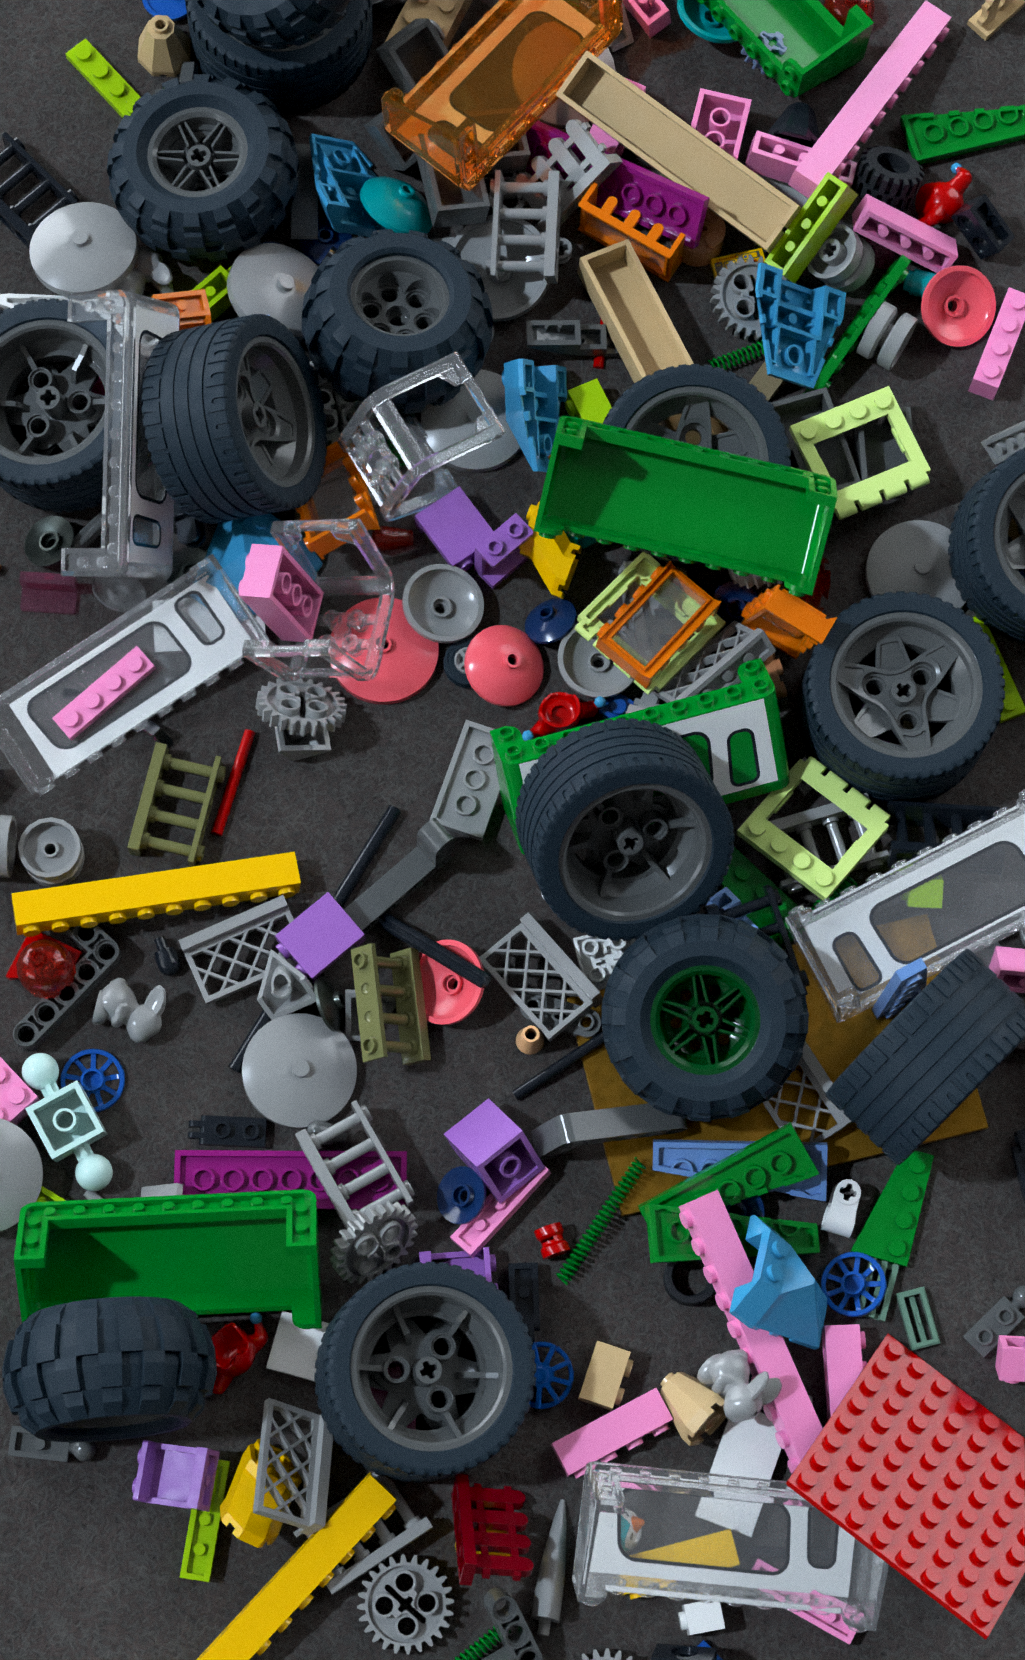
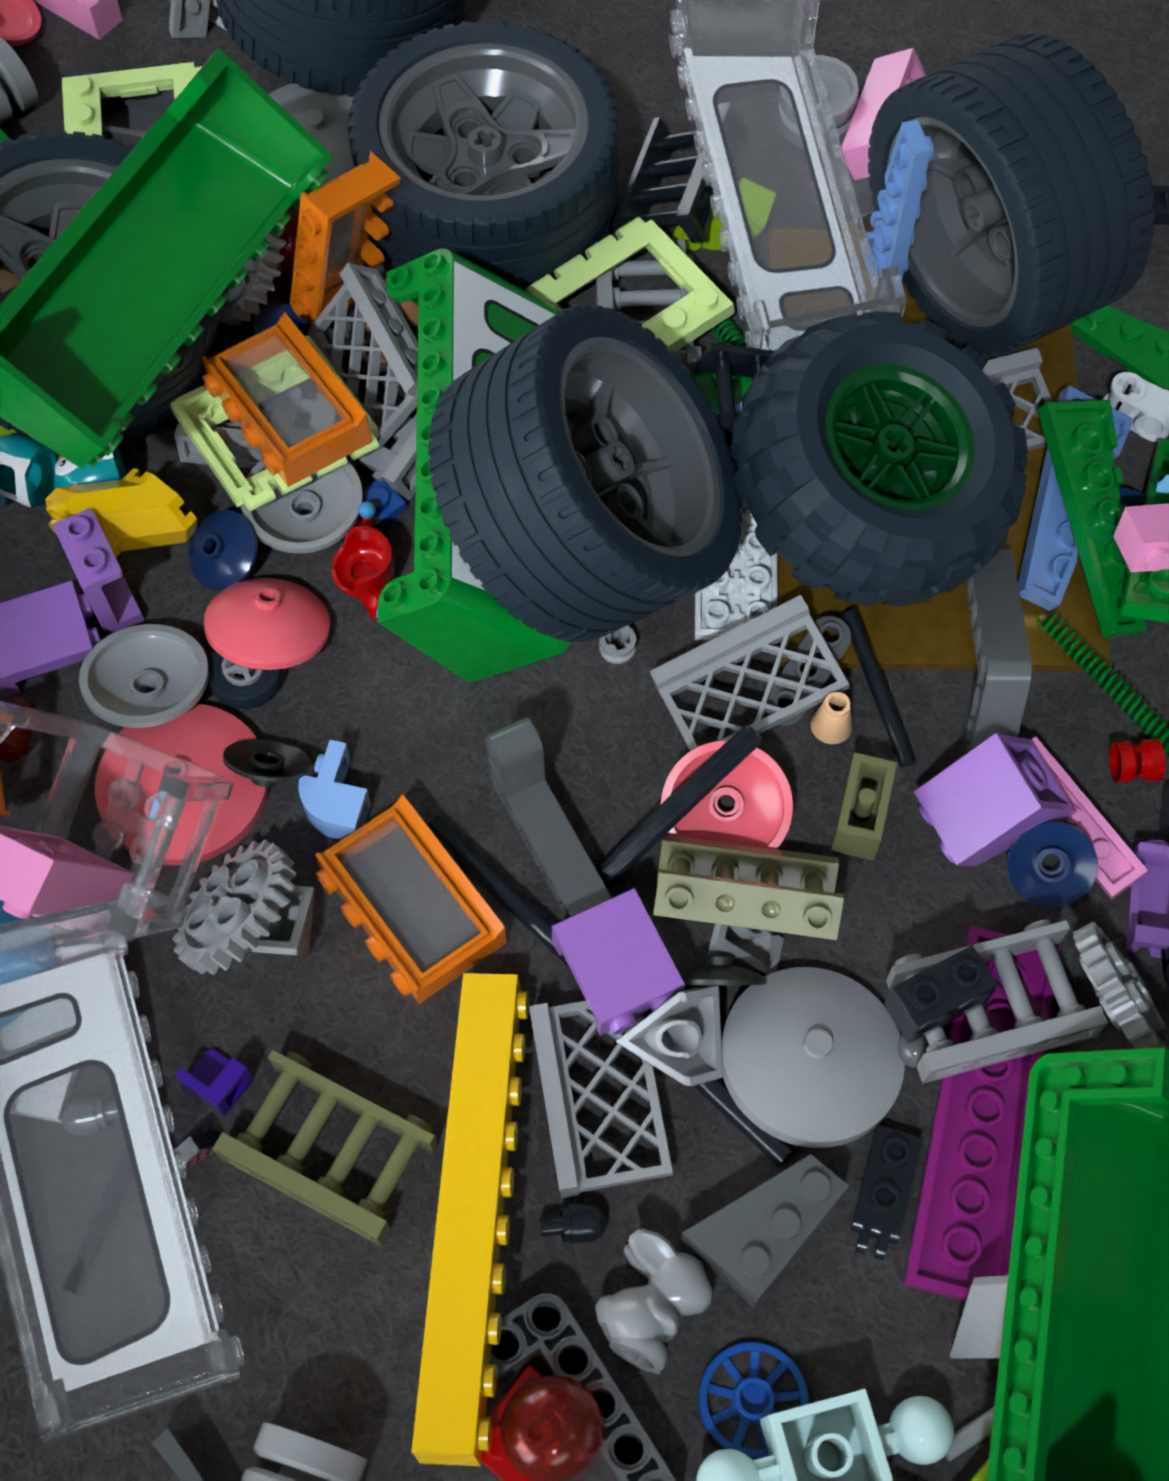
camera: 70 degrees left, 10 degrees down
(54, 868) = (364, 1397): light grey wheel -> none
(104, 693) = (98, 1218): bright pink plate -> none
(186, 1064) = (765, 1228): none -> dark grey wedge
(200, 731) = (217, 1080): none -> dark purple panel
(233, 782) = (316, 1051): red bar -> none
(337, 808) = (410, 901): none -> window
(341, 1128) = (940, 994): none -> black brick
(390, 738) = (328, 803): none -> light blue brick
(403, 695) = (266, 761): none -> pearl dark grey dish
(468, 1068) = (864, 806): none -> olive brick
(469, 784) = (422, 704): light grey plate -> none

